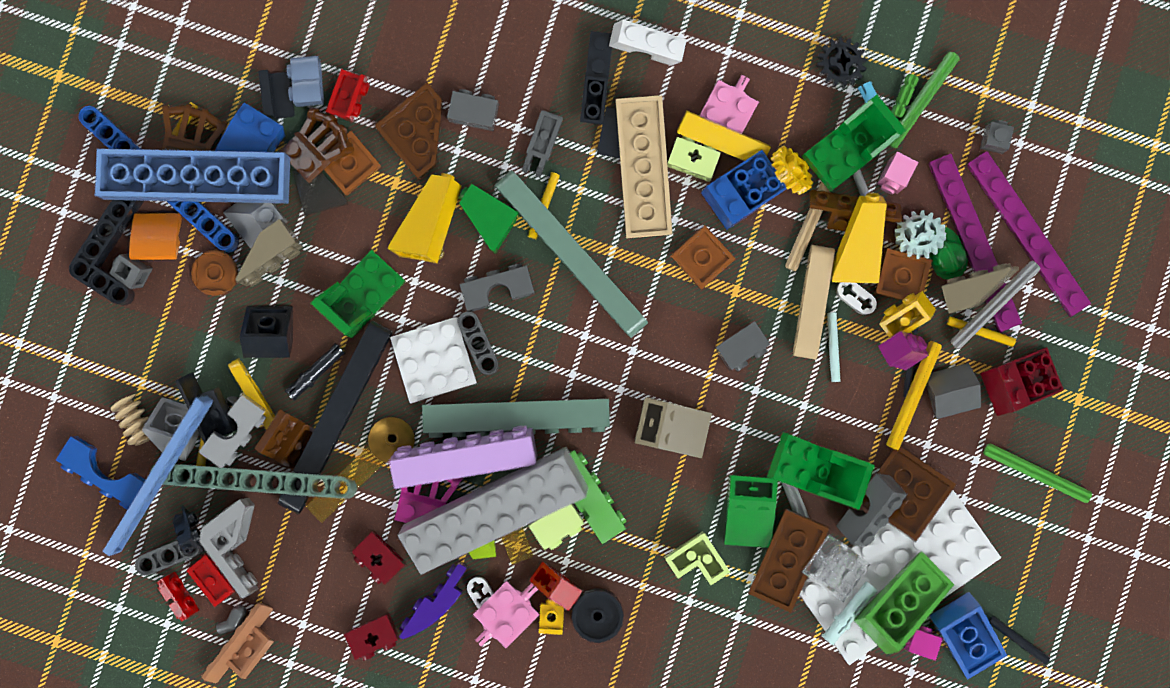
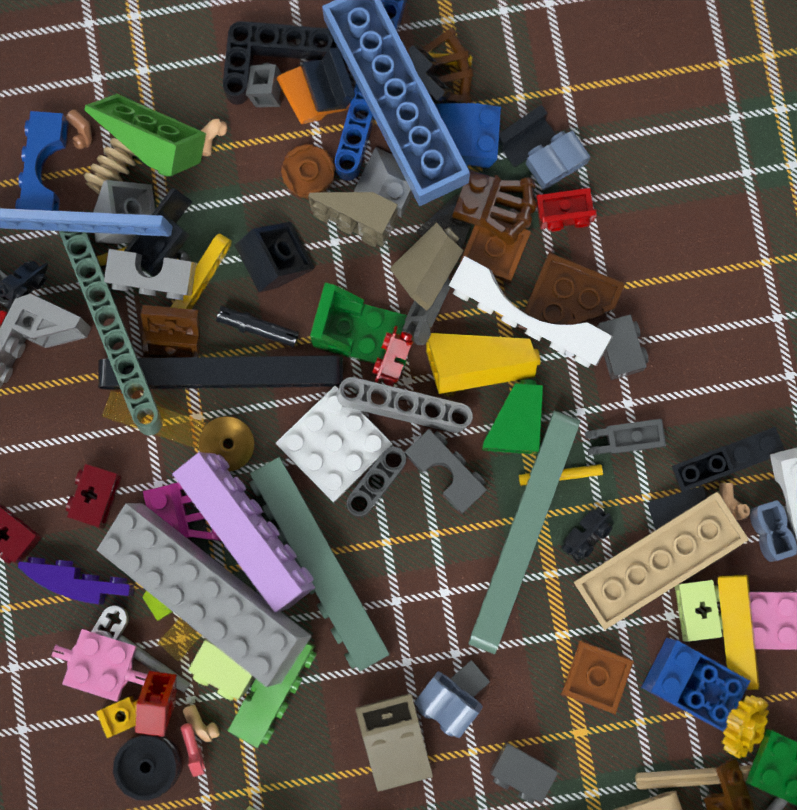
camera: 60 degrees right, 5 degrees down
(97, 430) = (83, 127): none -> nougat arm
(124, 377) = (149, 134): none -> bright green slope
(143, 328) = (213, 128): none -> light nougat arm
(154, 221) = (328, 82): none -> black panel
(183, 142) = (426, 68): none -> black slope
(336, 220) = (428, 264): none -> dark tan slope
(369, 240) = (419, 320): none -> dark grey hinge
(372, 189) = (480, 284): none -> white arch
(397, 290) = (388, 367): none -> hinge
(434, 282) = (417, 402): none -> light grey beam
(526, 575) = (154, 664): none -> light grey bar
(587, 565) = (204, 732): none -> light nougat arm
(595, 199) = (597, 527): none -> black hinge
(607, 577) = (195, 755): none -> coral bar
(637, 90) = (738, 510): none -> light nougat arm
(657, 350) = (470, 679): none -> dark grey tile
(659, 73) = (775, 538): none -> sand blue brick
(667, 375) = (448, 705): none -> sand blue brick

